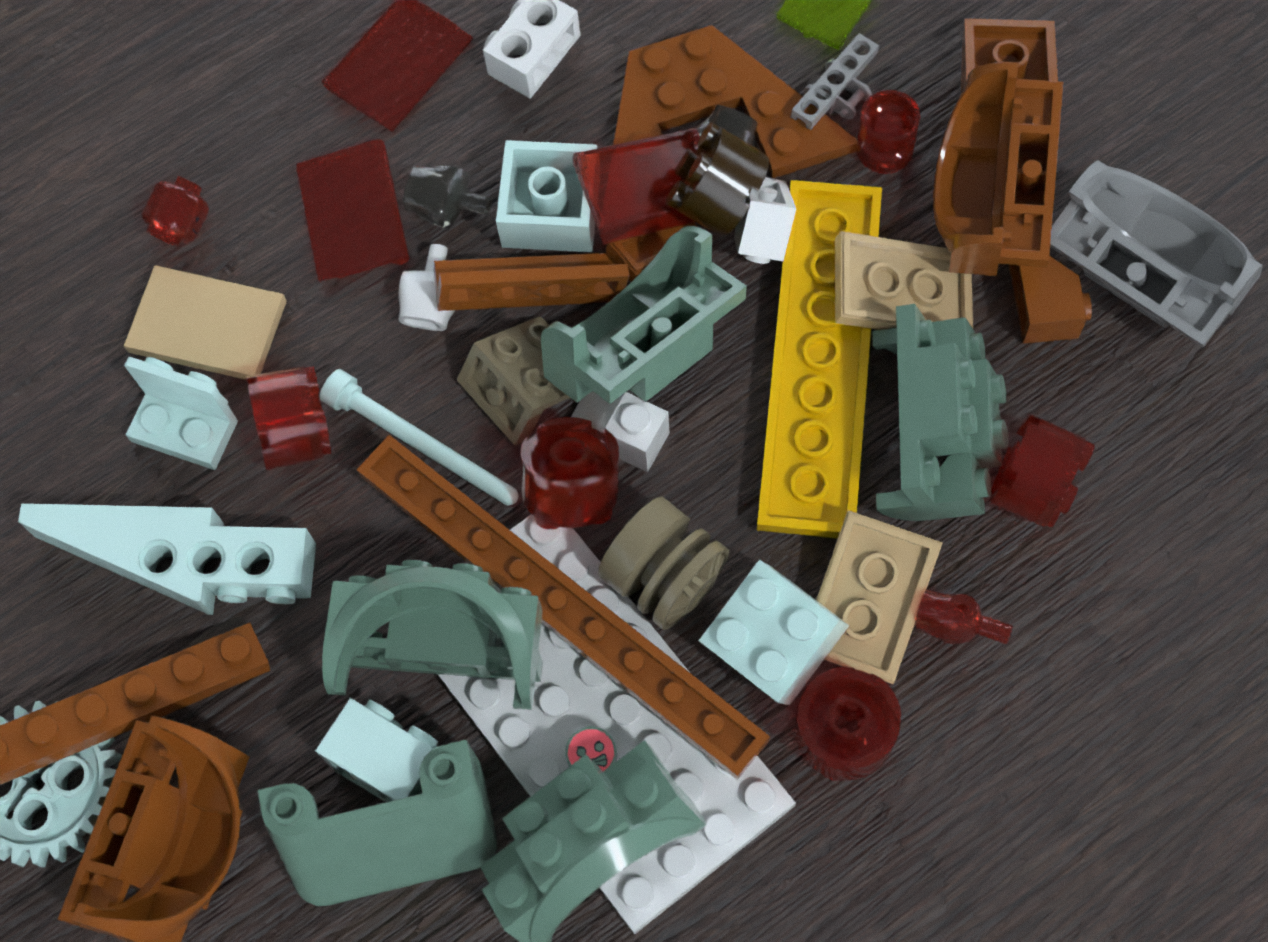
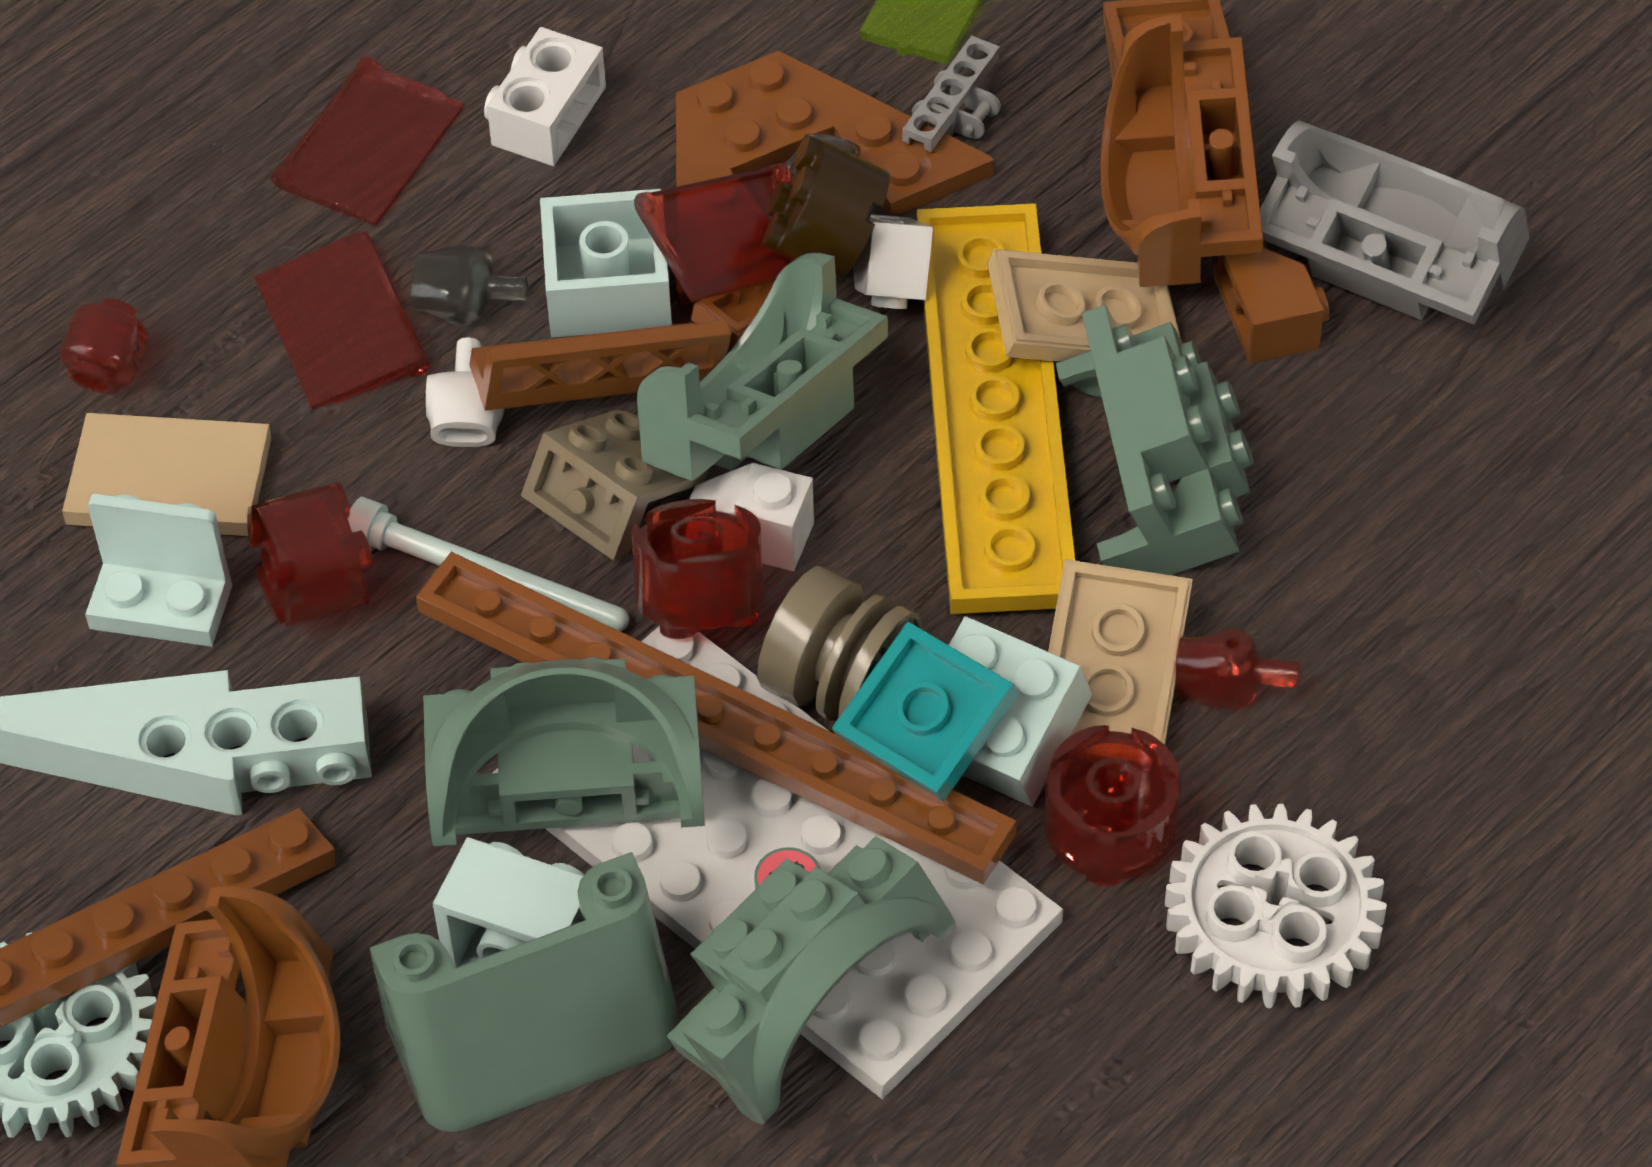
camera: 15 degrees left, 15 degrees down
(714, 641) = (925, 711): none -> teal plate
(887, 131) = (1030, 139): clear red wheel -> none
(935, 868) = (1257, 951): none -> white gear
(1040, 472) = (1300, 487): clear red brick -> none

